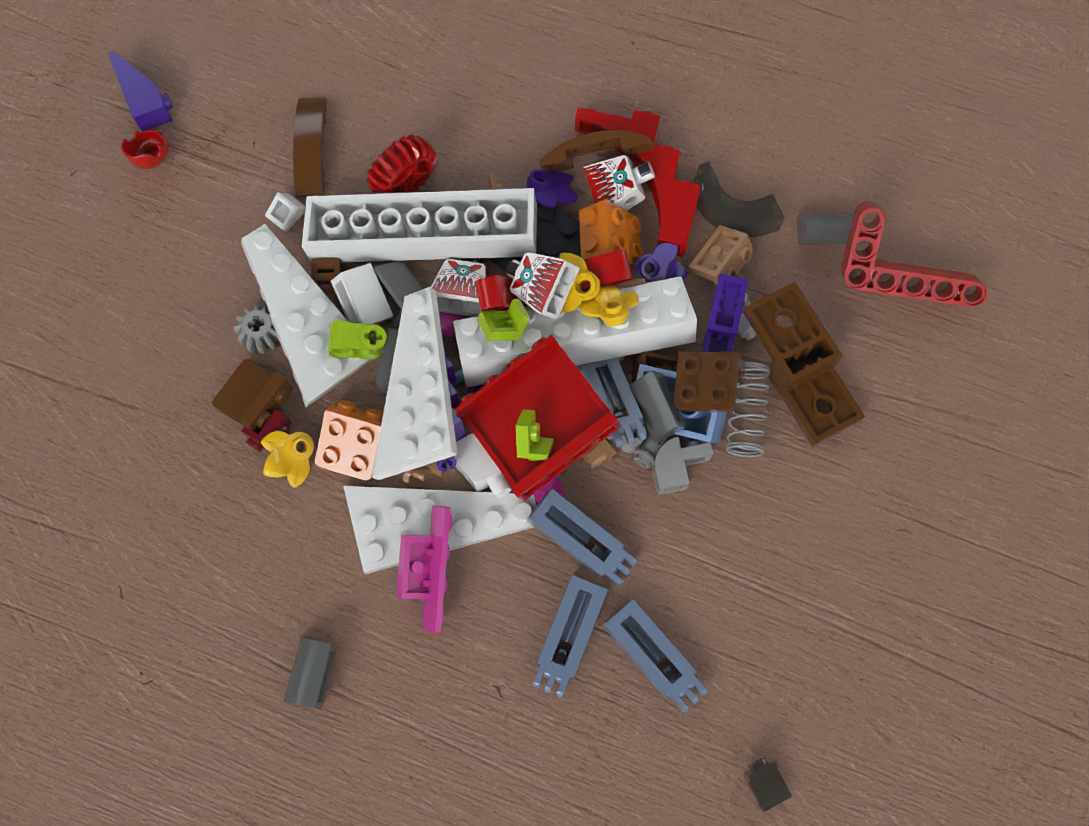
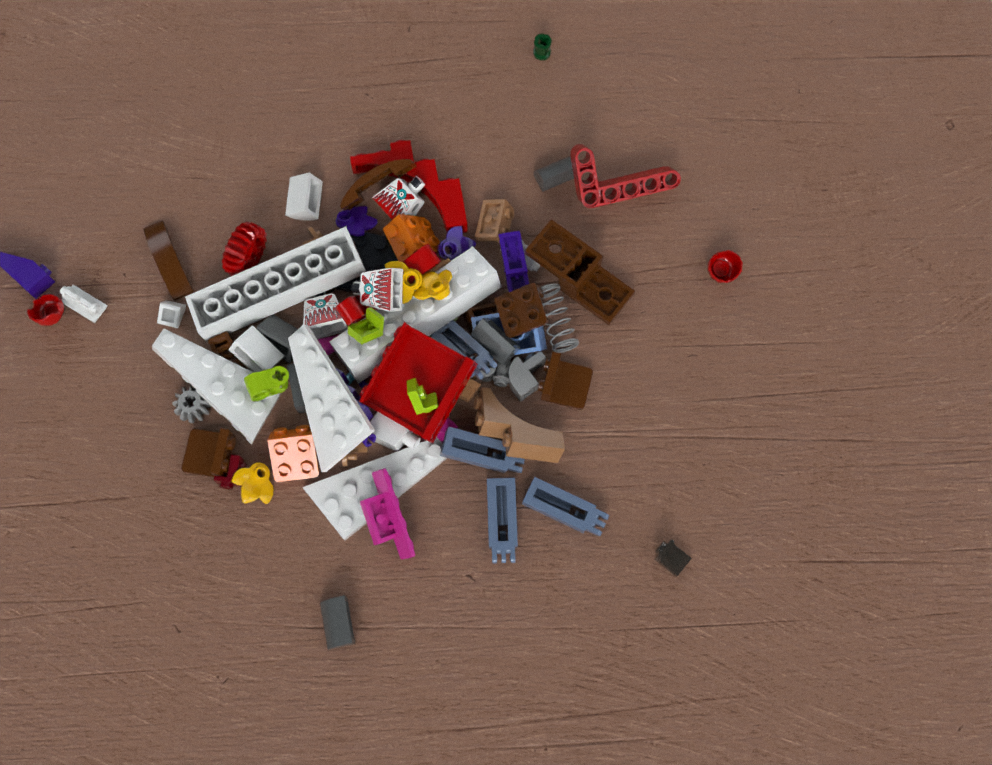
camera: 25 degrees left, 0 degrees up
(190, 156) = (82, 302): none -> white hinge
(502, 135) = (304, 197): none -> white brick
(634, 539) = (518, 436): none -> medium nougat arch
(719, 208) = (477, 188): clear smoke arch -> none
(724, 496) = (565, 383): none -> reddish brown bracket
(880, 63) = (539, 49): none -> dark green bush
(998, 434) = (724, 266): none -> red hair

